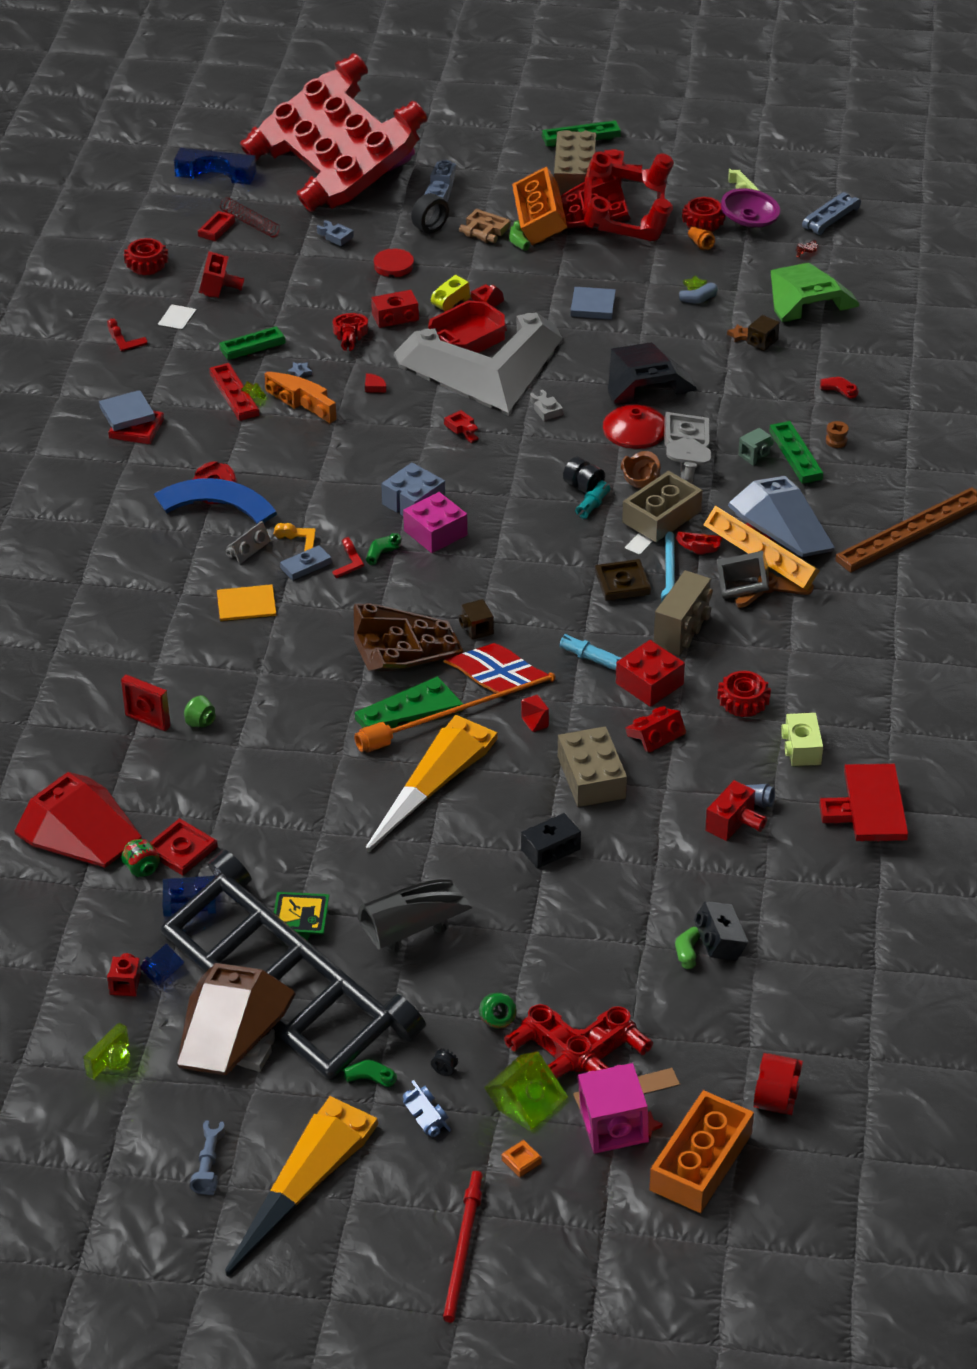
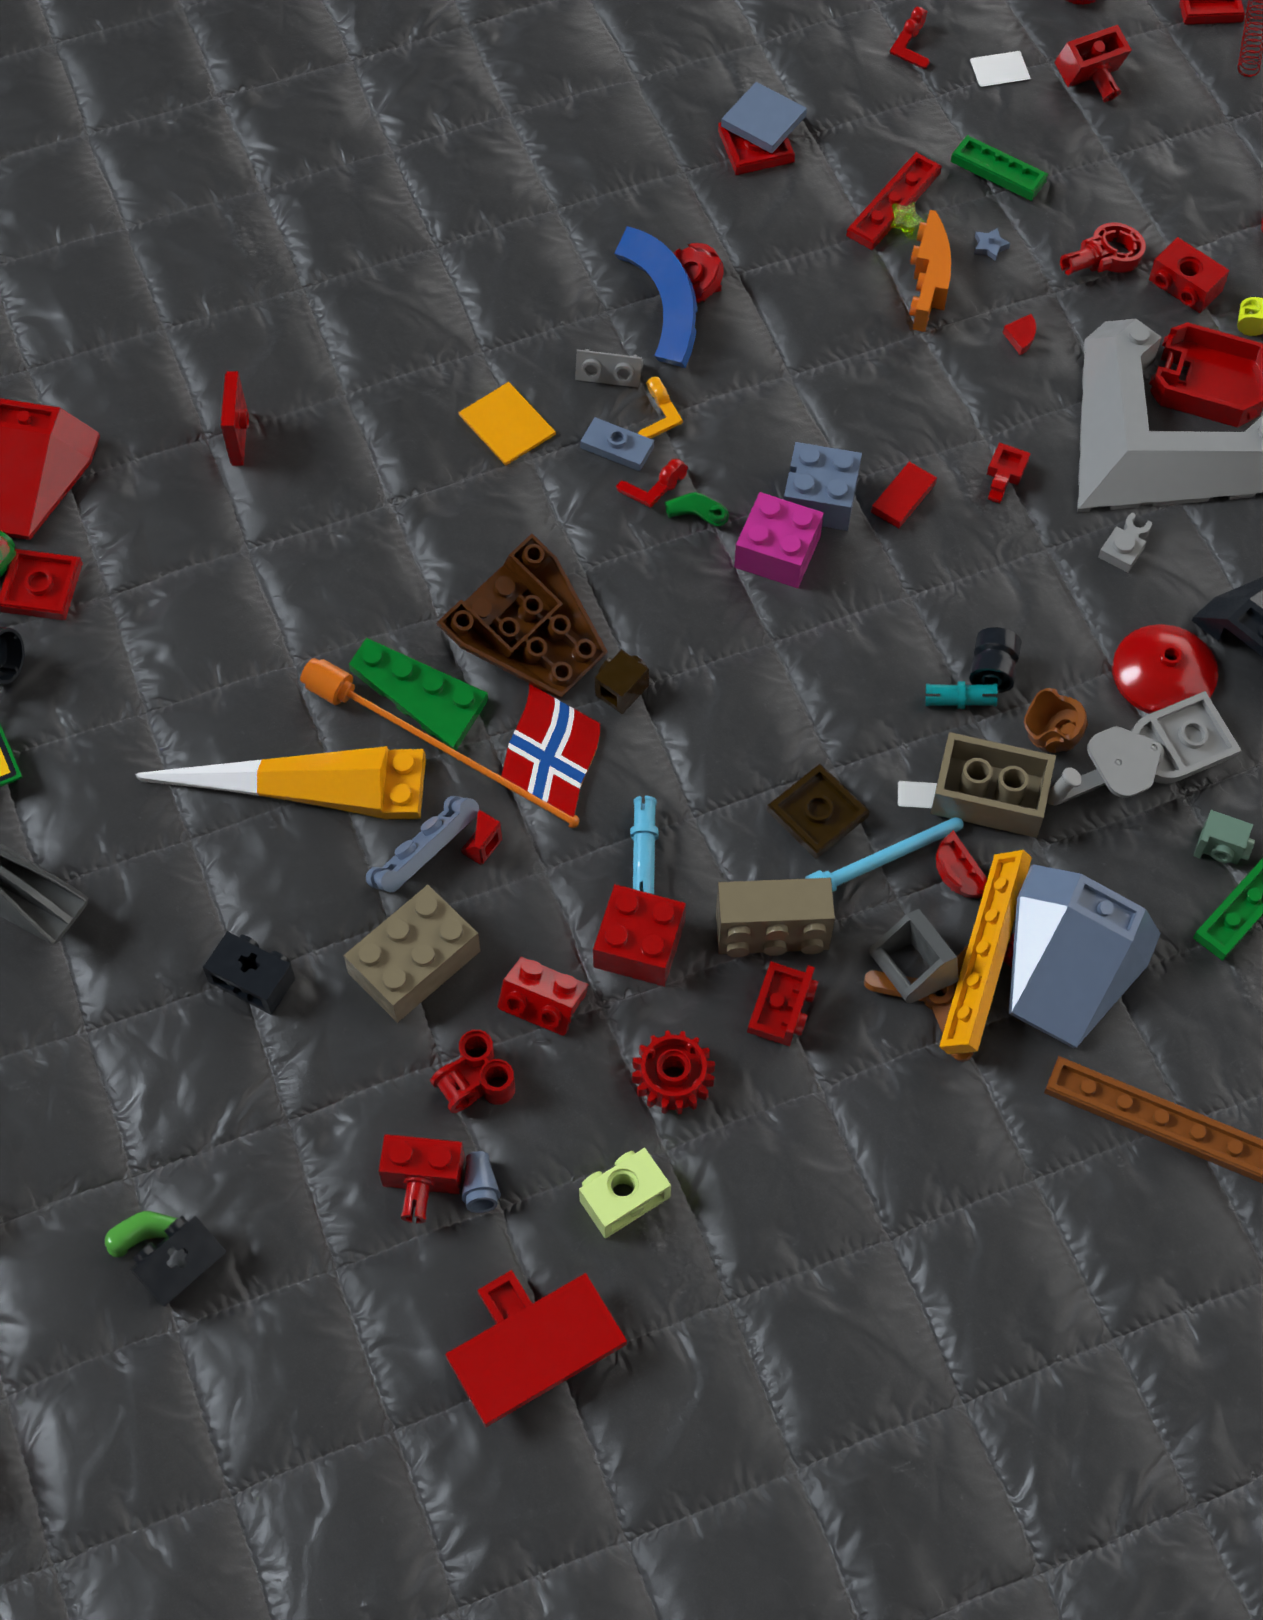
camera: 60 degrees right, 20 degrees up
(199, 712) = (265, 480): bright green cone -> none
(442, 466) = (904, 494): none -> red tile
(521, 737) = (417, 852): none -> sand blue plate
(687, 770) = (468, 1077): none -> red piece
(733, 635) = (781, 1003): none -> red bracket

